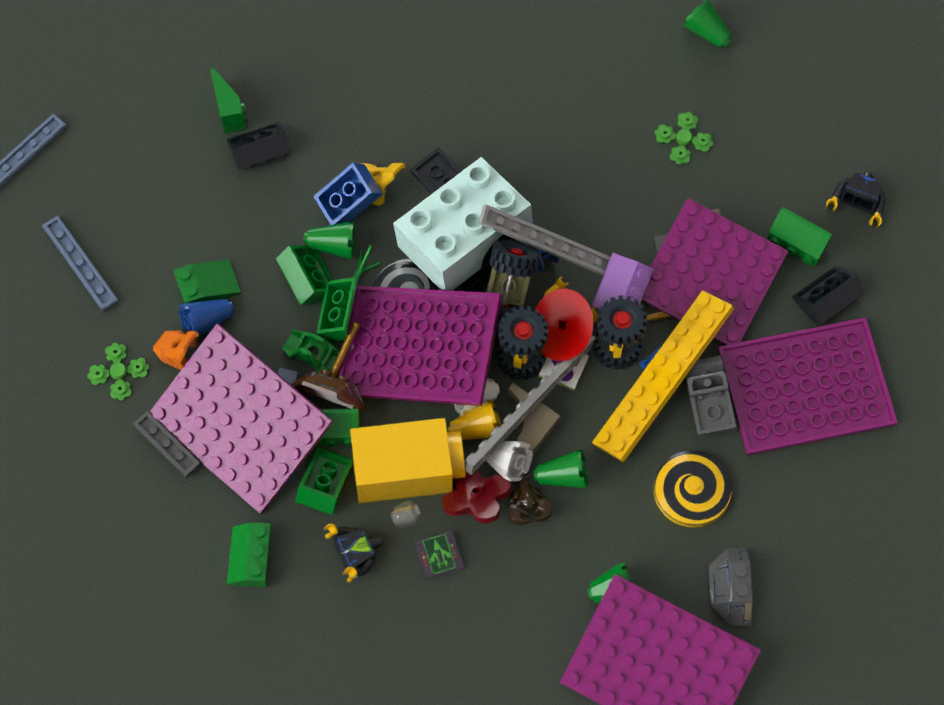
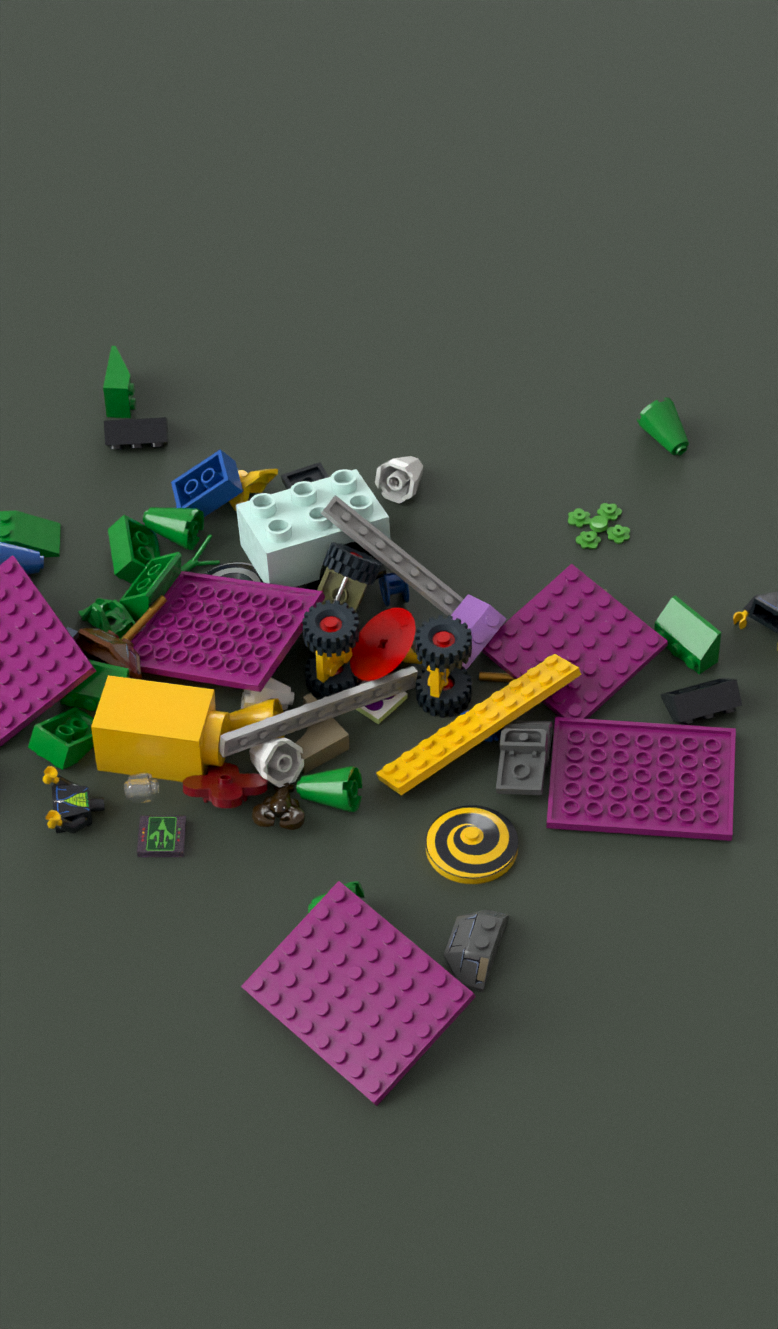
camera: 20 degrees right, 20 degrees down
(506, 137) = (399, 478): none -> white cone

